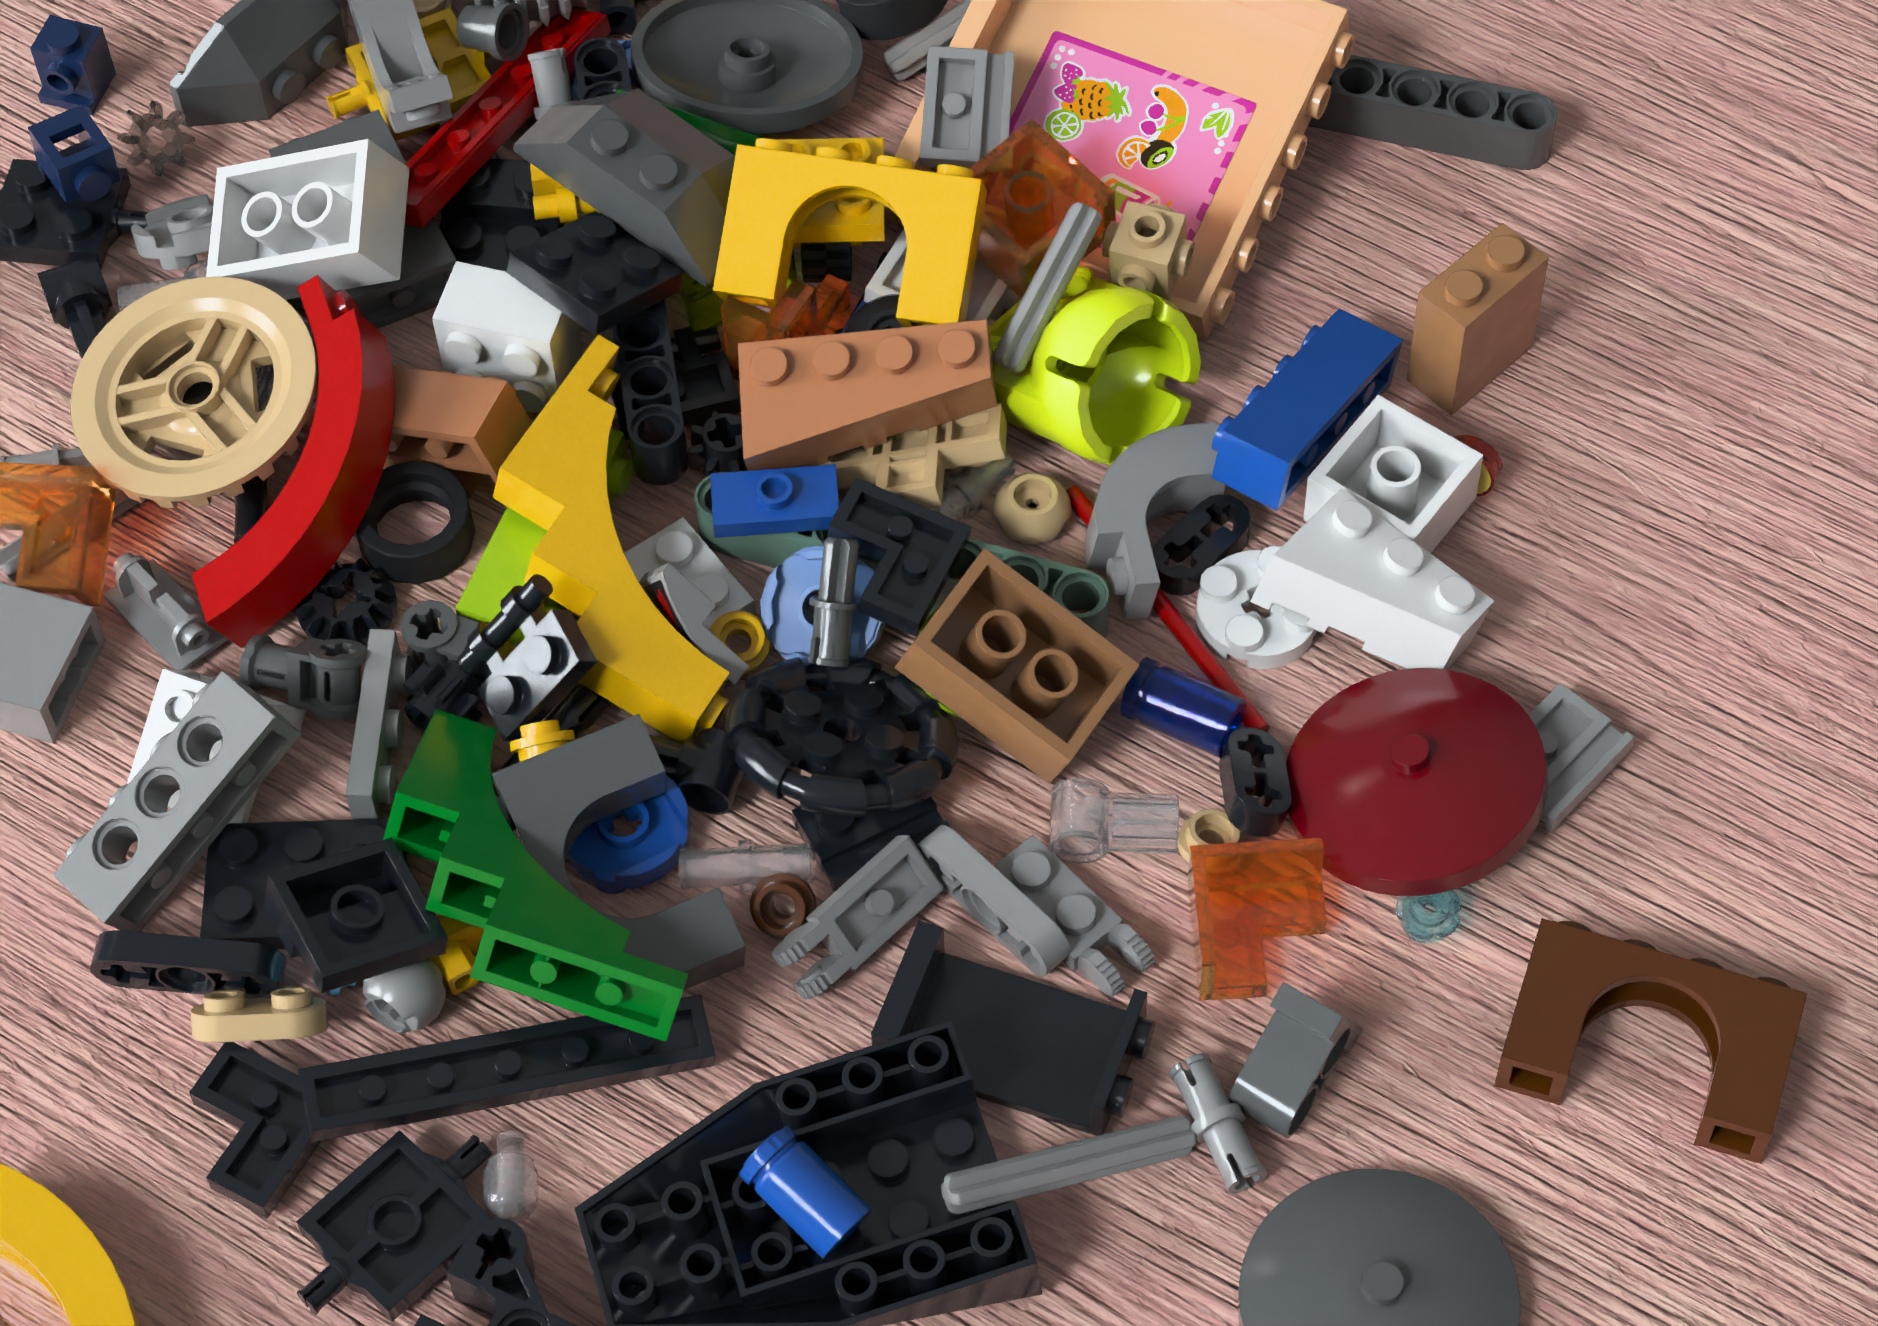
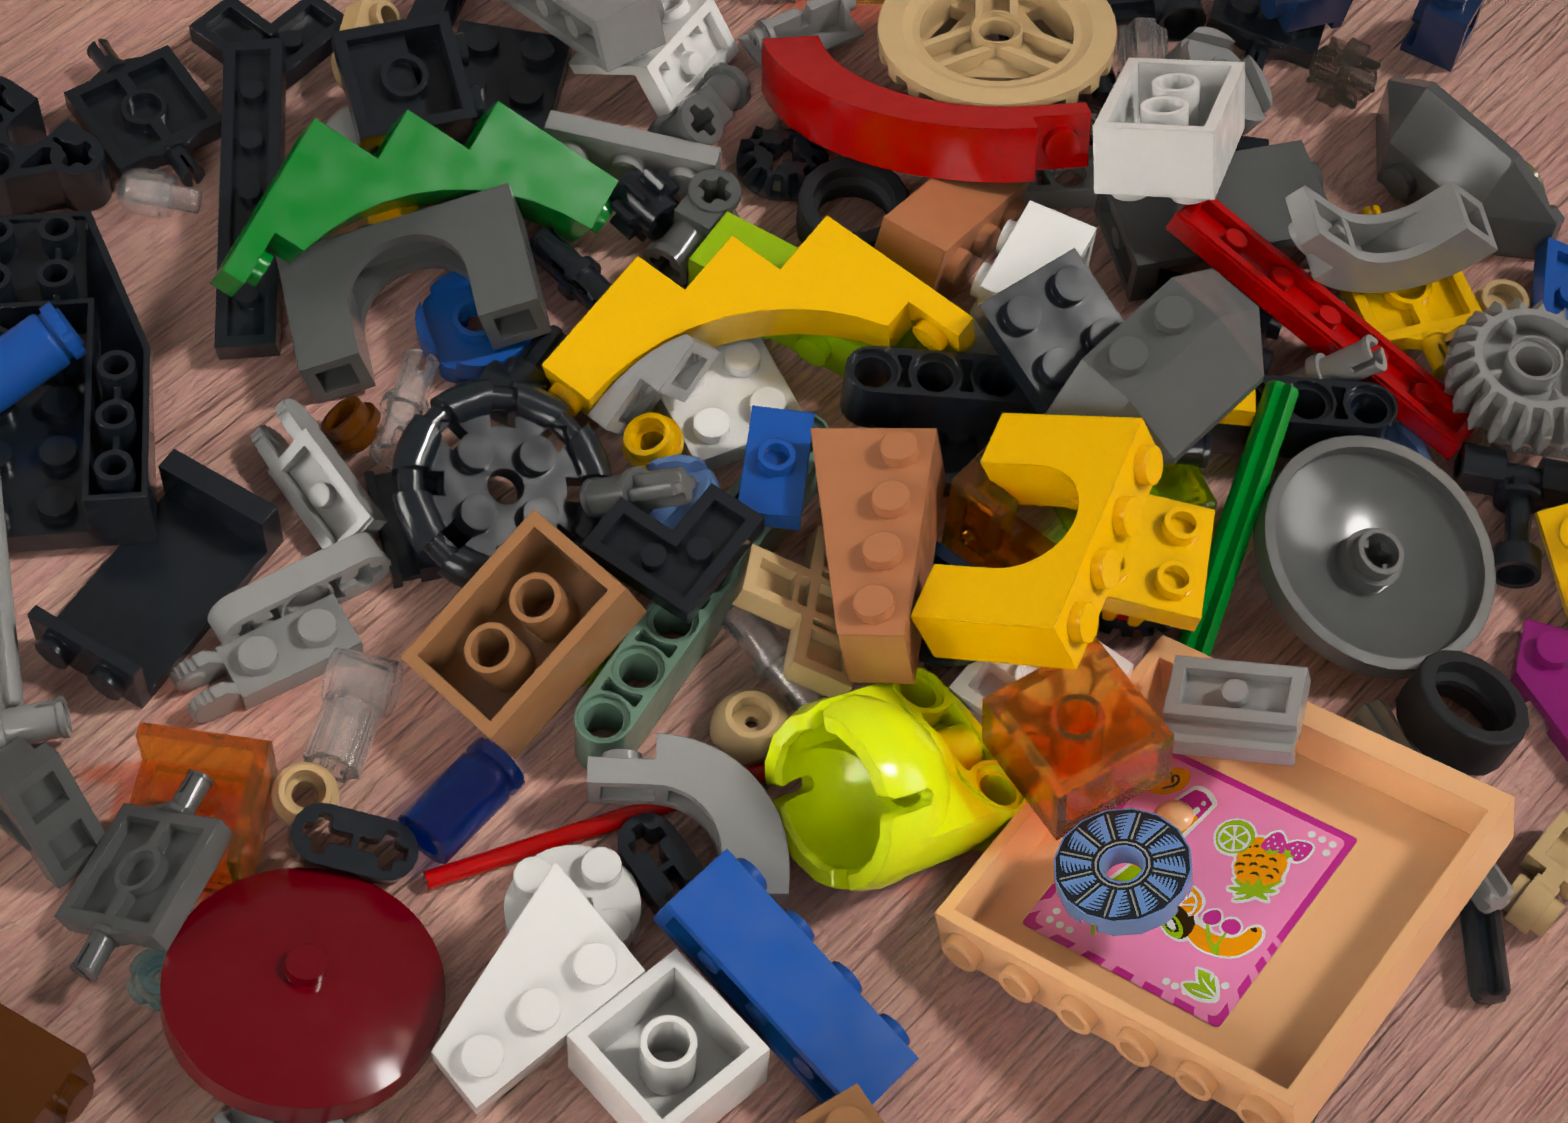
camera: 95 degrees right, 0 degrees up
(494, 29) = (1416, 340): dark grey piece -> none
(539, 670) = (622, 238): black plate -> none
(540, 738) = (554, 249): yellow plate -> none
(1047, 287) = (954, 718): light grey axle -> none
(1148, 248) = (1006, 848): tan brick -> none
(1152, 140) = (1120, 838): none -> tile
(1346, 933) = (144, 876): none -> dark grey plate

